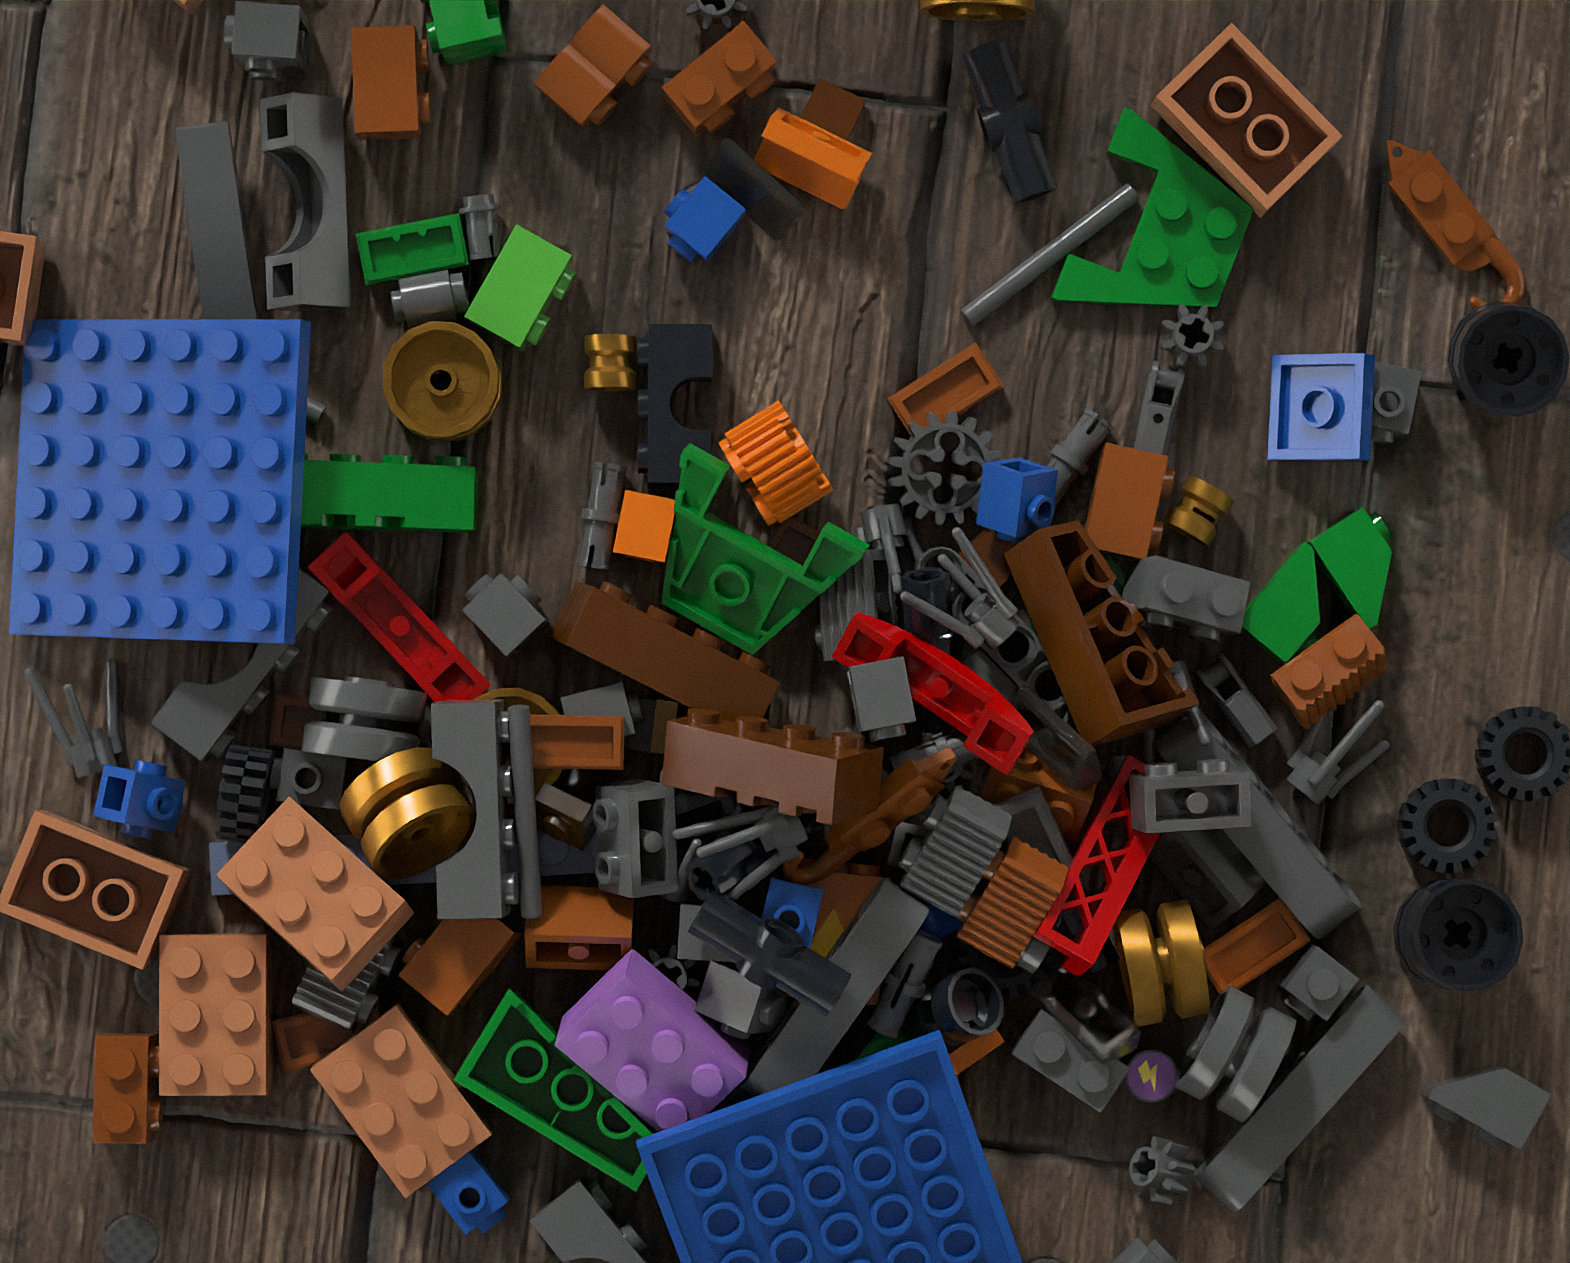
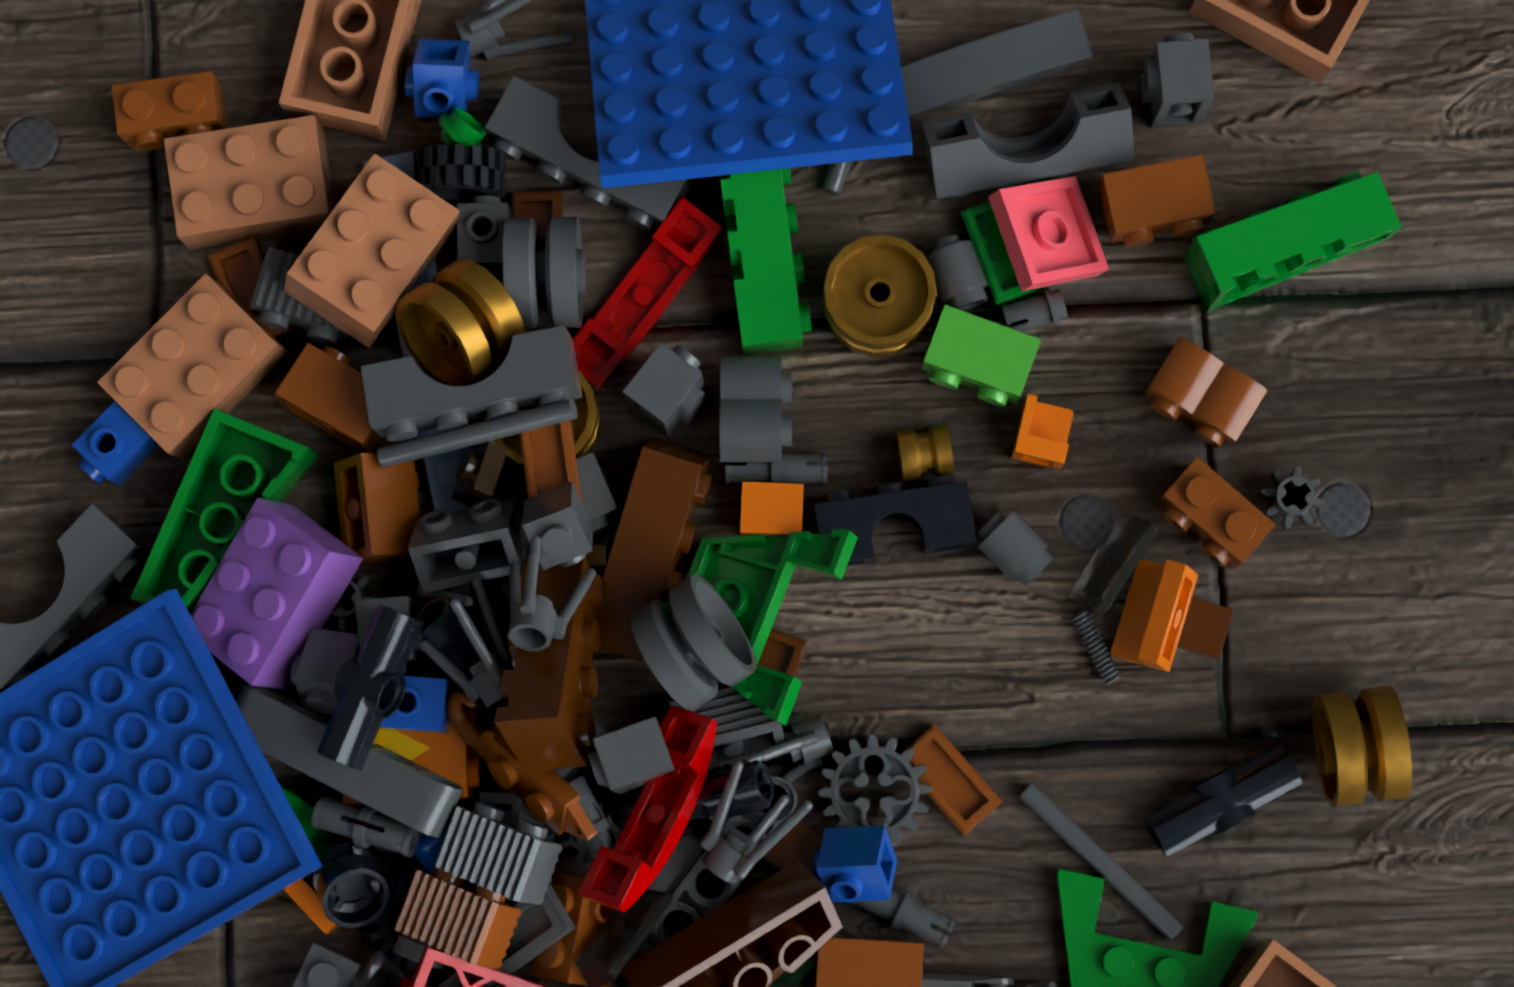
camera: 90 degrees right, 5 degrees down
(199, 785) = (460, 128): none -> green plate
(404, 198) = (1048, 233): none -> coral plate
(539, 530) = (752, 409): none -> dark grey brick
(609, 239) = (1042, 434): none -> orange panel
(635, 741) = (561, 525): none -> dark grey brick
(702, 220) = (1075, 518): blue brick -> none
(722, 287) = (1014, 547): none -> dark grey brick
(732, 774) = (534, 618): none -> dark grey plant
(773, 623) = (693, 642): none -> dark grey wheel
(777, 462) = (851, 624): orange brick -> none
(833, 223) = (1095, 646): none -> dark grey piece

